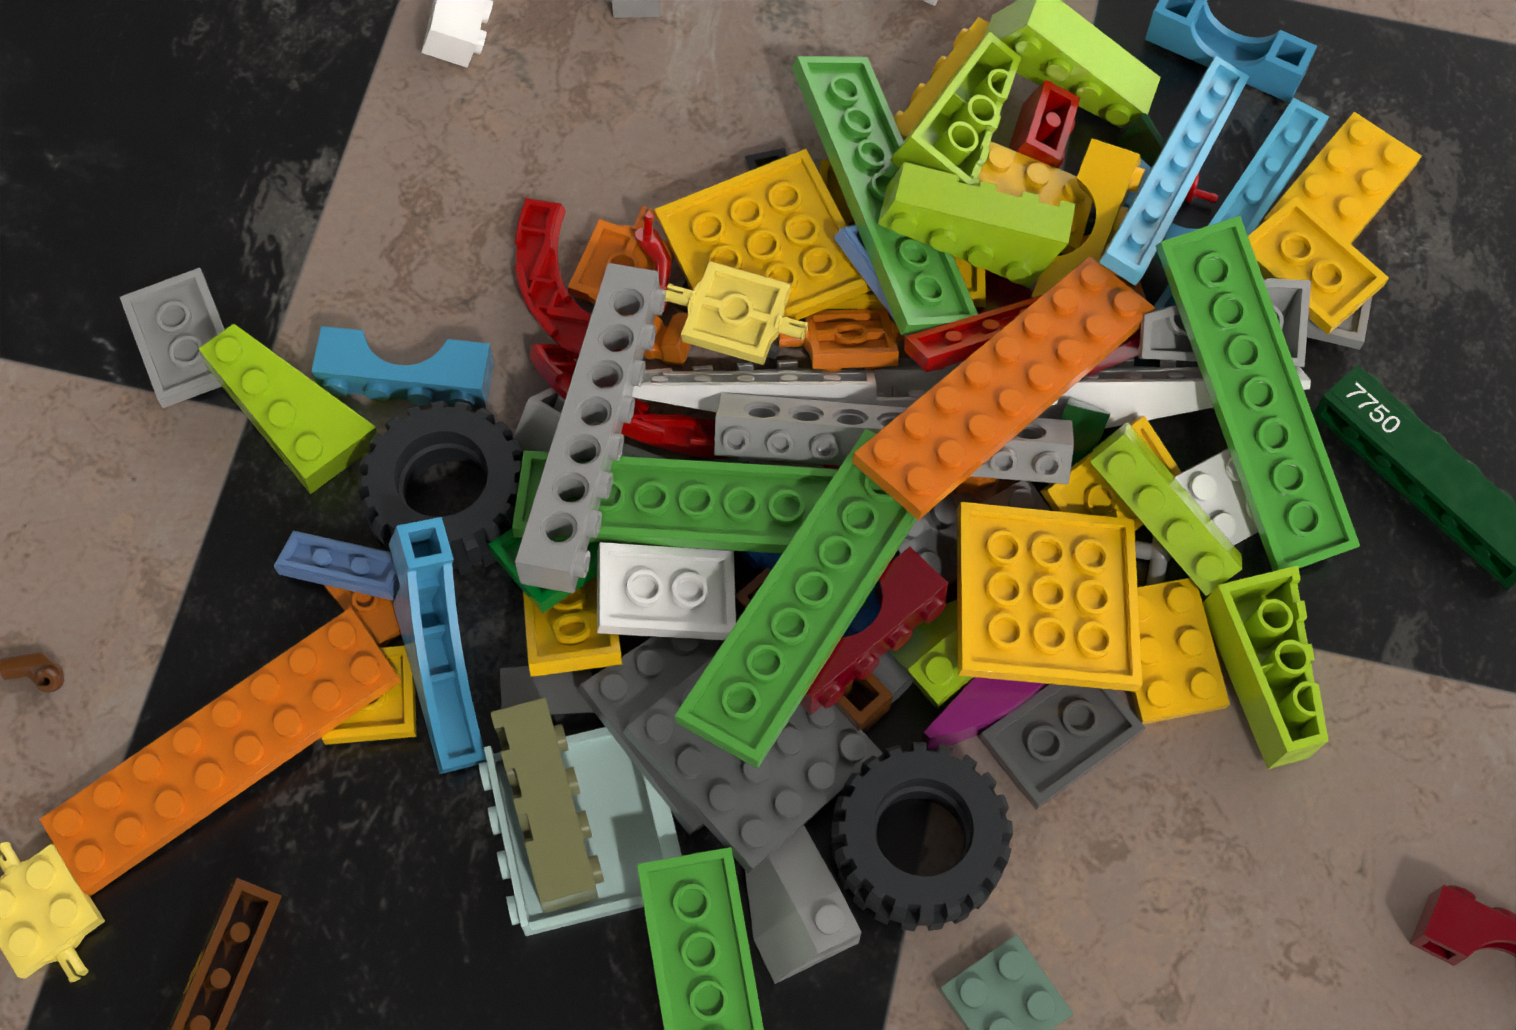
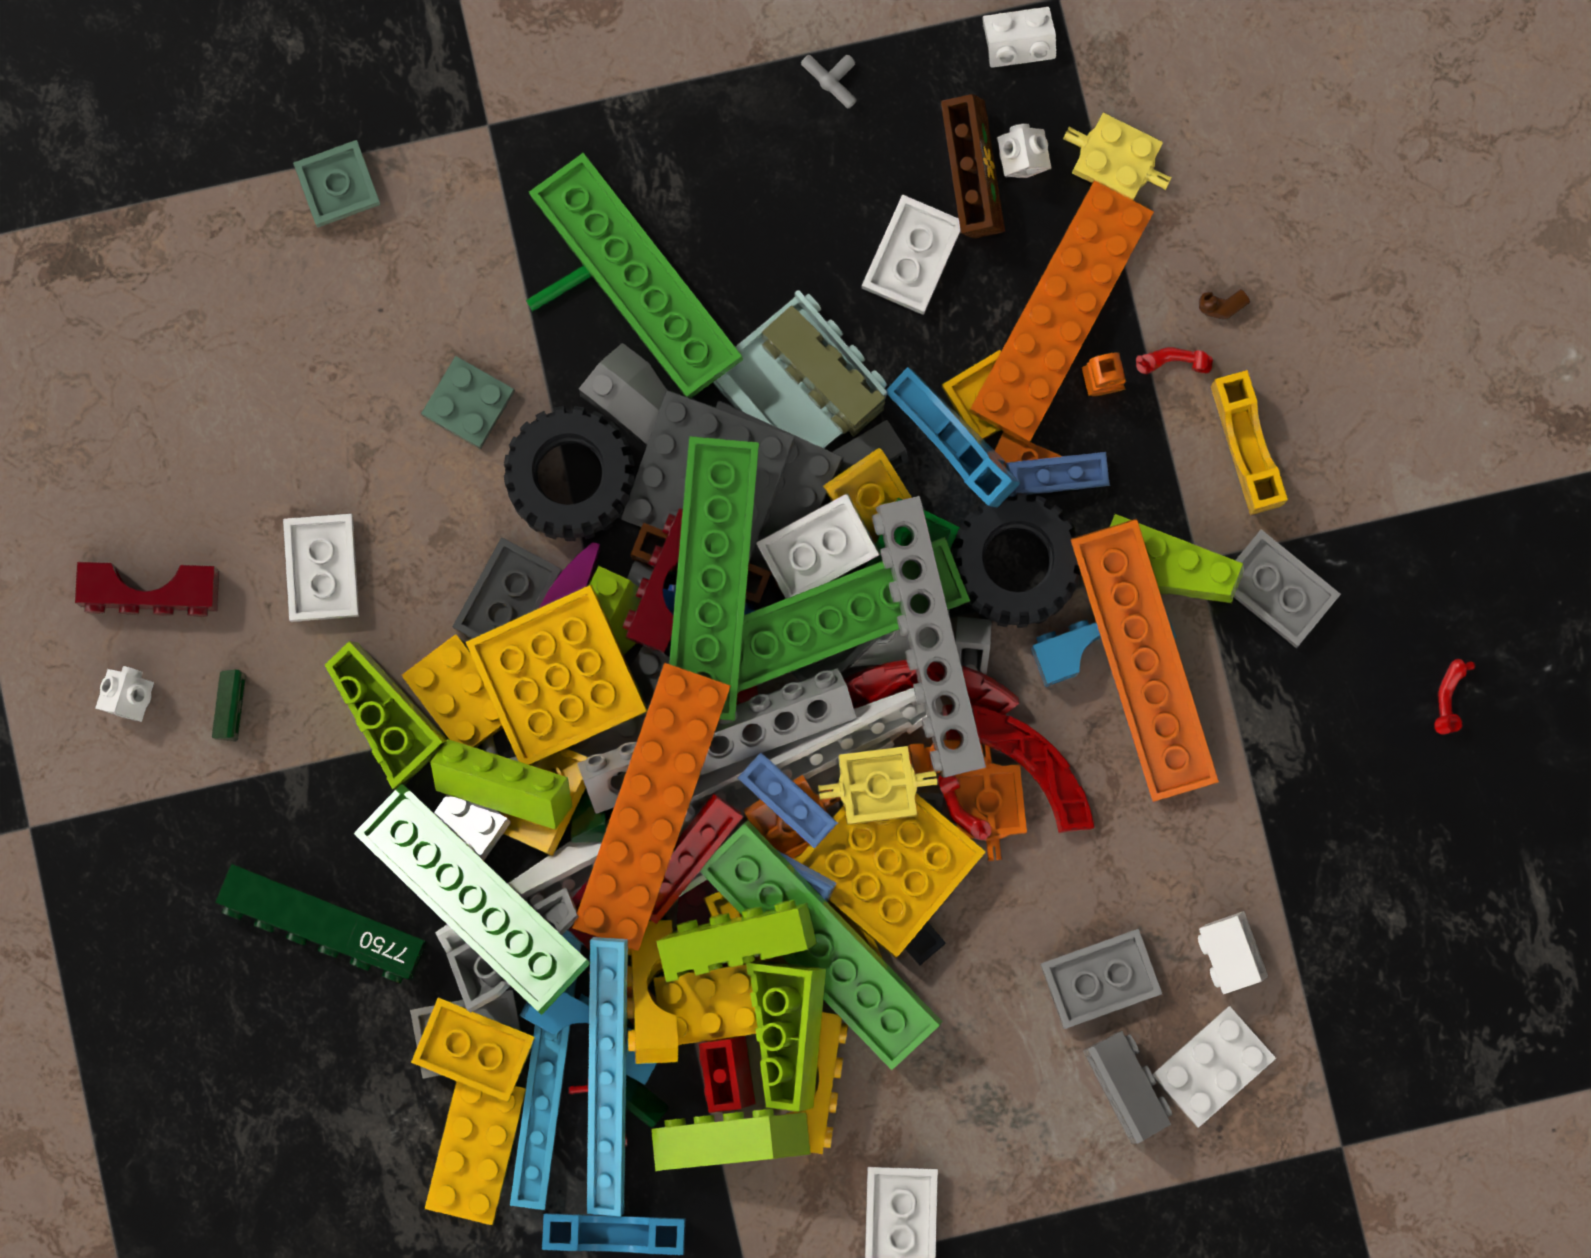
camera: 155 degrees right, 15 degrees up
(58, 173) = (1448, 721): none -> red piece
(123, 453) = (1242, 428): none -> yellow arch
(143, 970) = (1024, 151): none -> white brick
(159, 647) = (1150, 362): none -> red piece
(218, 647) = (1104, 375): none -> orange leg
(356, 912) = (912, 254): none -> white plate
(366, 319) = (1144, 660): none -> orange plate
(603, 60) = (1101, 979): none -> light grey plate
(845, 341) = (787, 800): none -> medium blue tile
(1280, 879) = (321, 567): none -> white plate
(1456, 768) = (229, 705): none -> dark green slope

